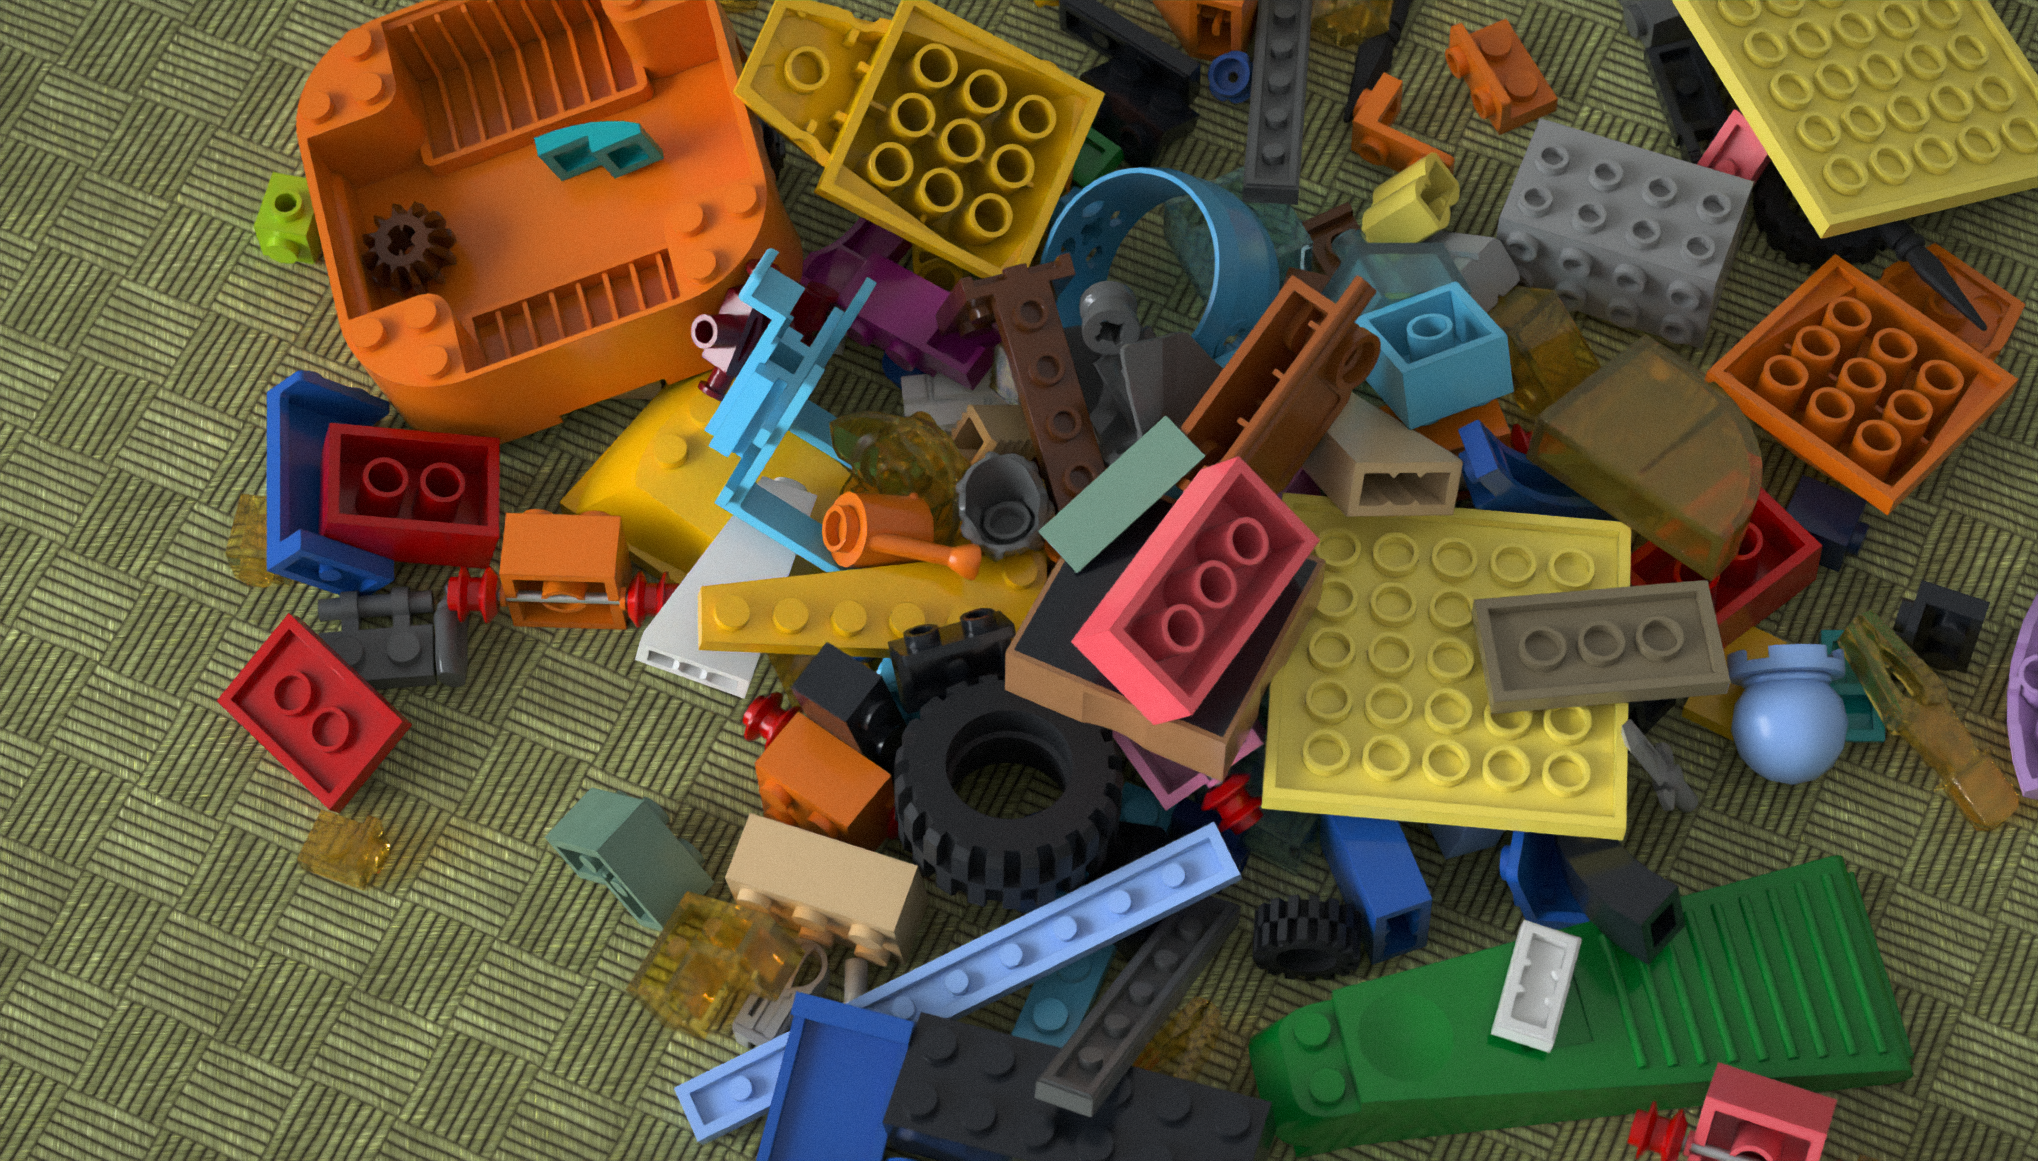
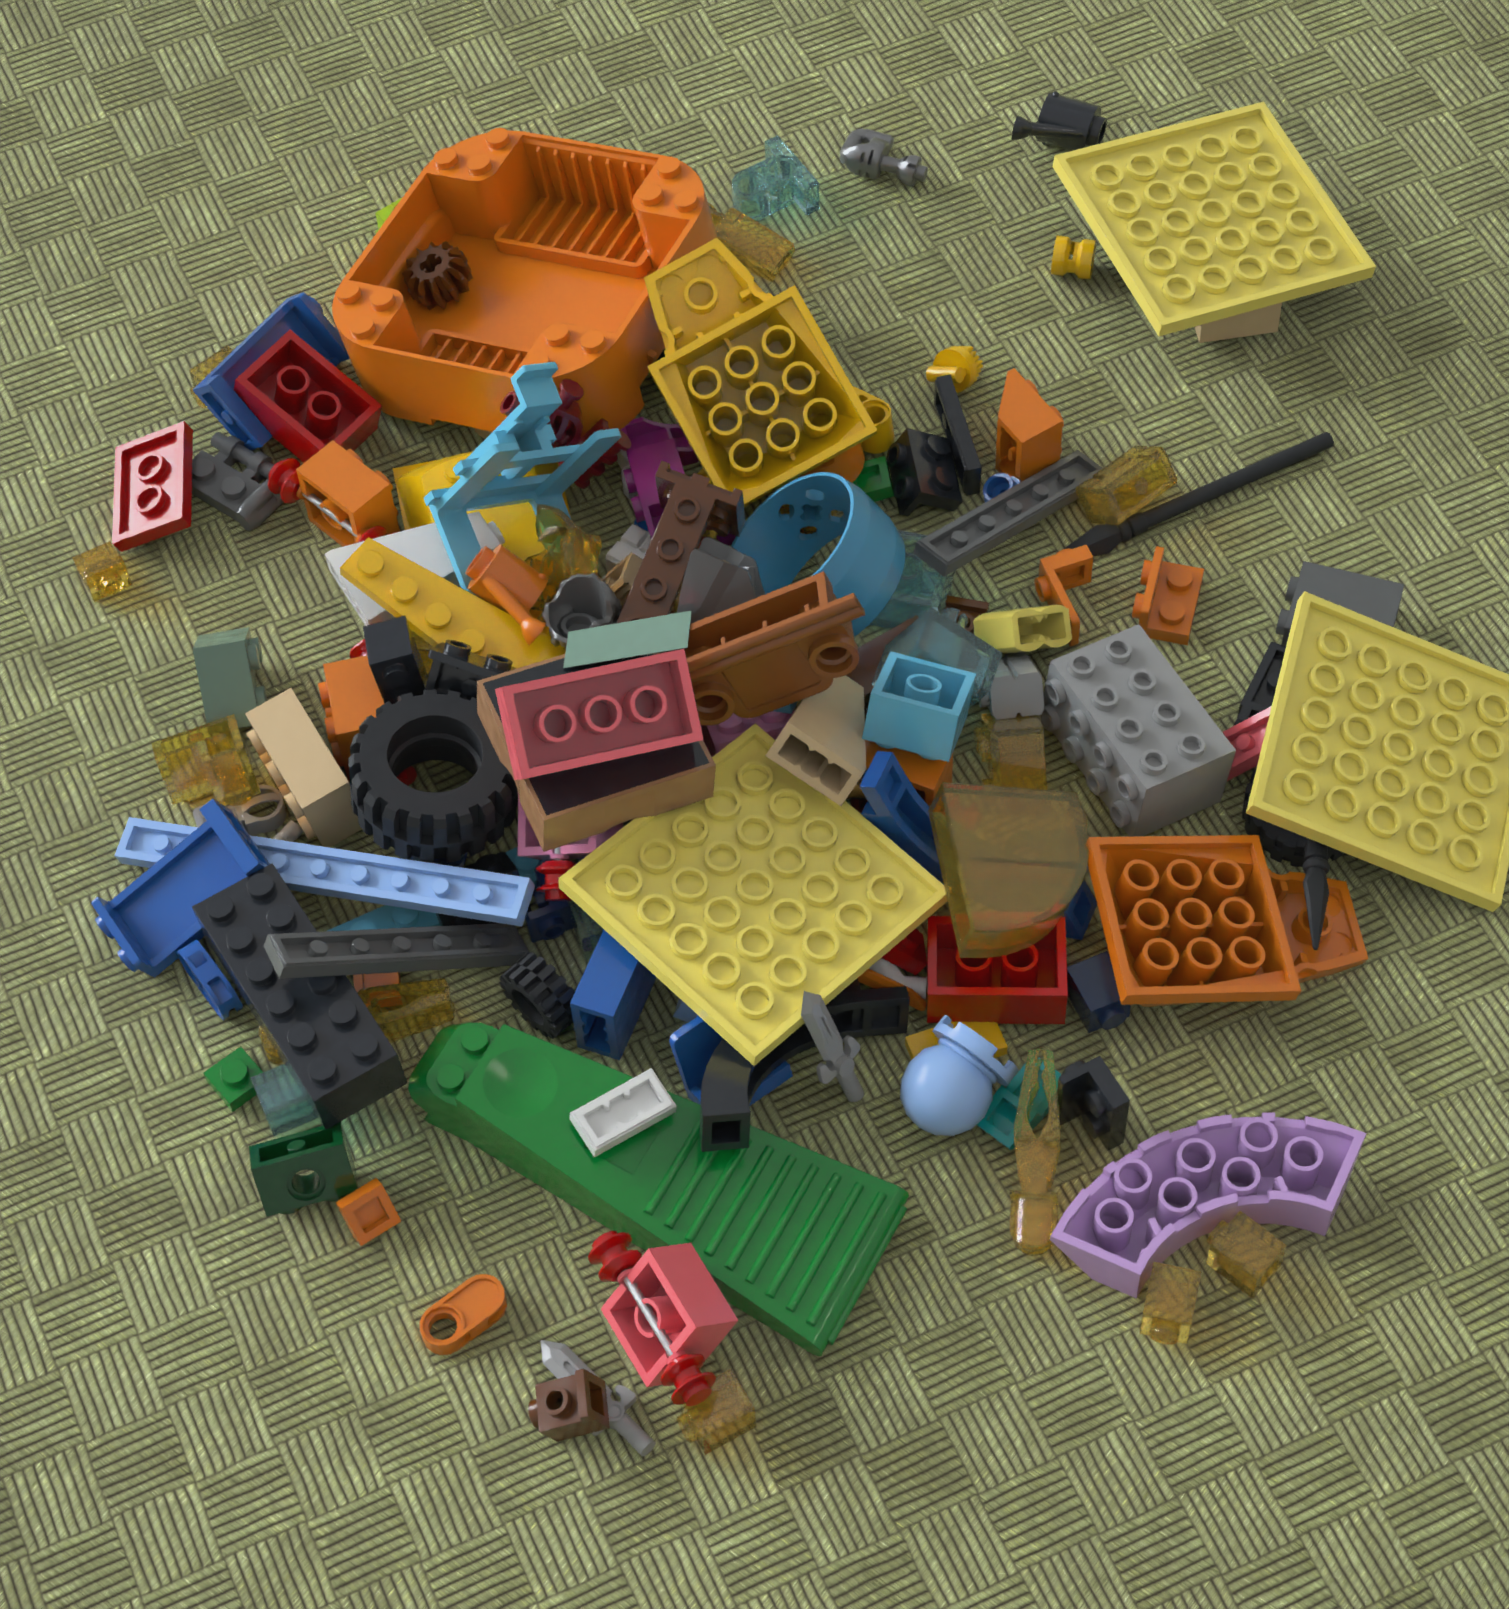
camera: 40 degrees right, 5 degrees down
(581, 147) = (579, 280): teal slope -> none
(1113, 303) = (731, 540): dark grey wheel -> none
(1600, 646) = (845, 941): dark tan plate -> none

